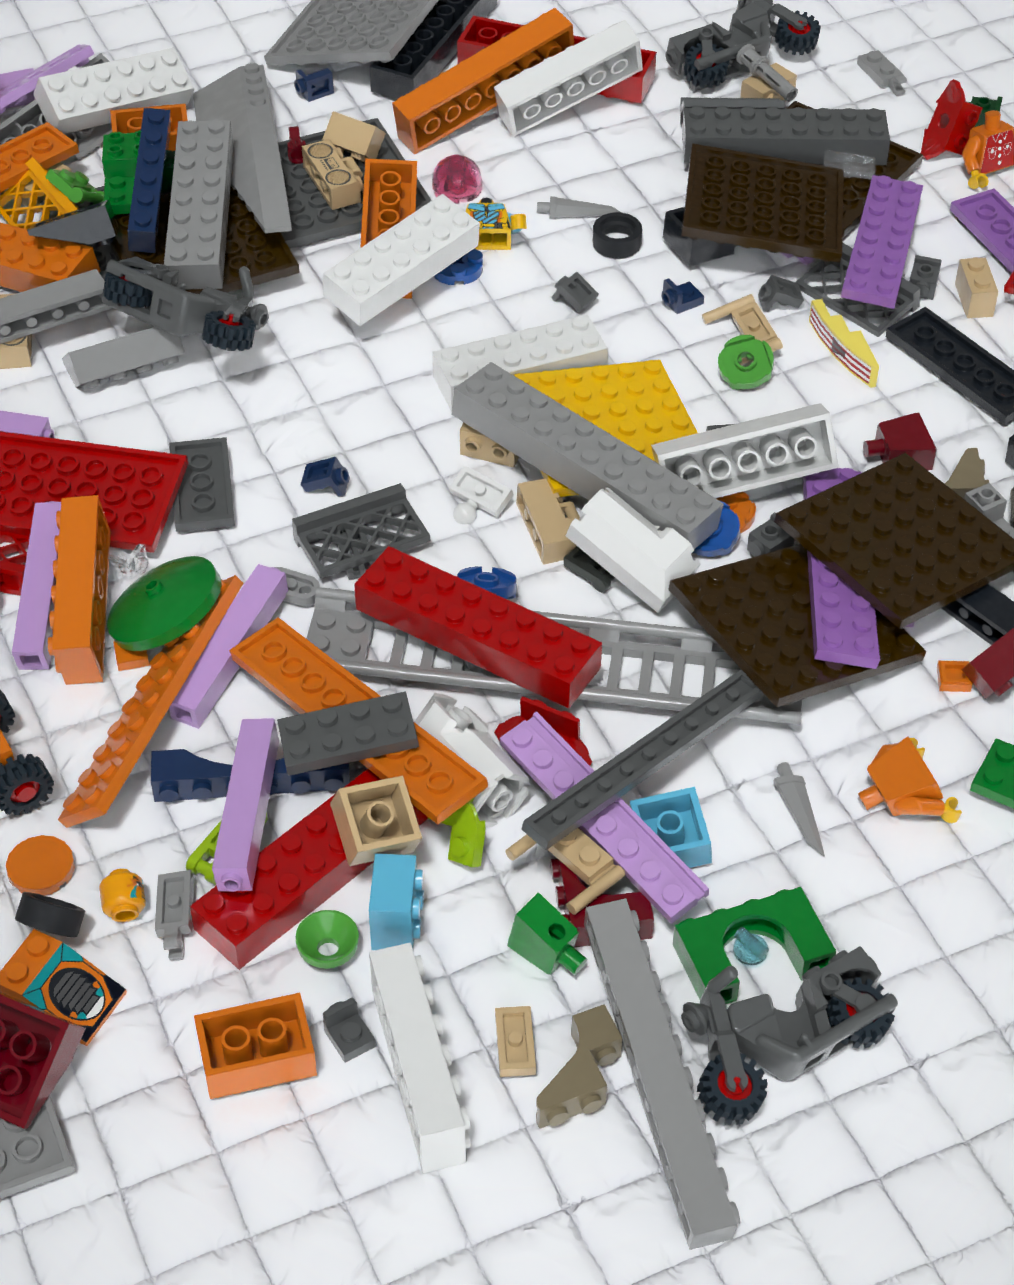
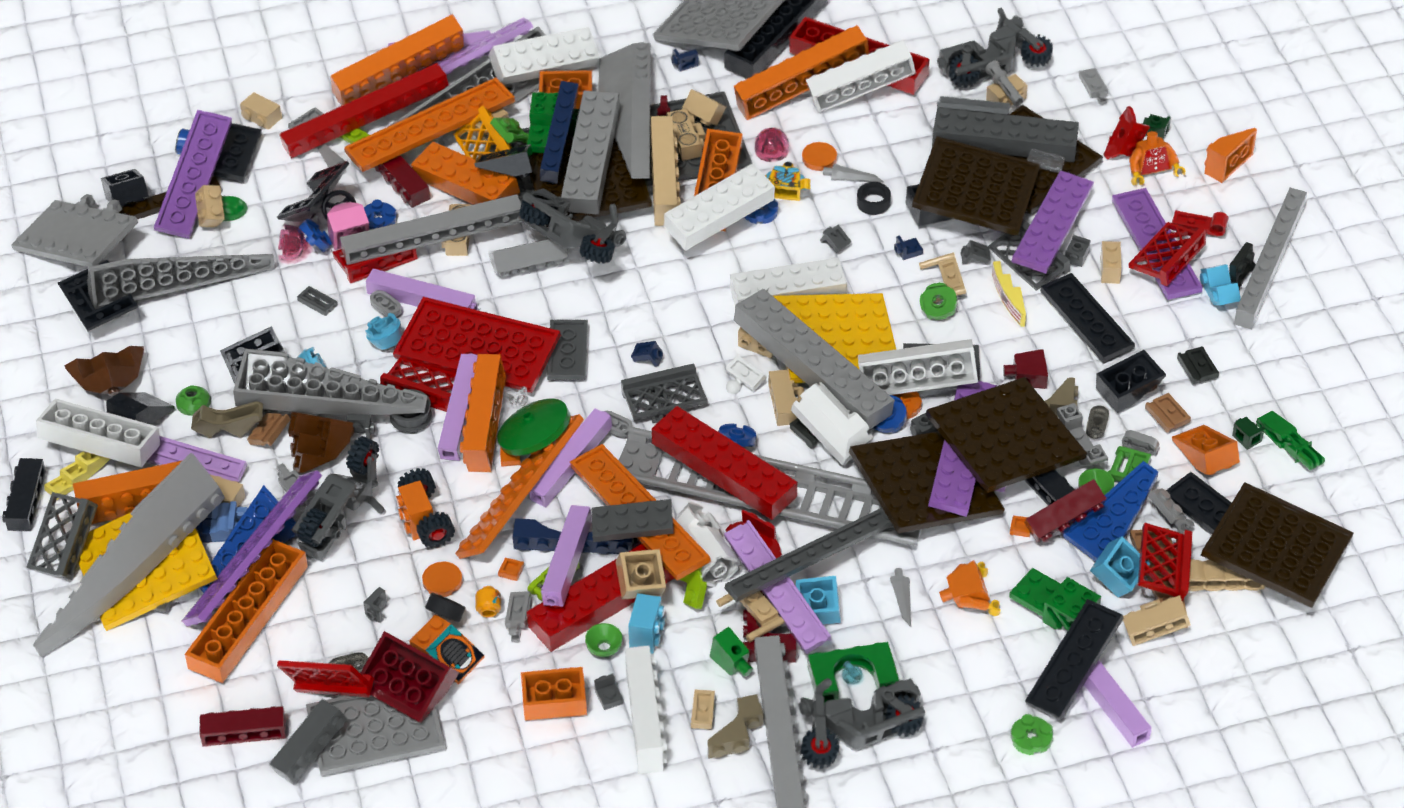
camera: 10 degrees right, 0 degrees up
(154, 835) = (511, 569): none -> orange tile
(309, 216) = (664, 166): none -> tan brick
(526, 188) = (819, 155): none -> orange tile

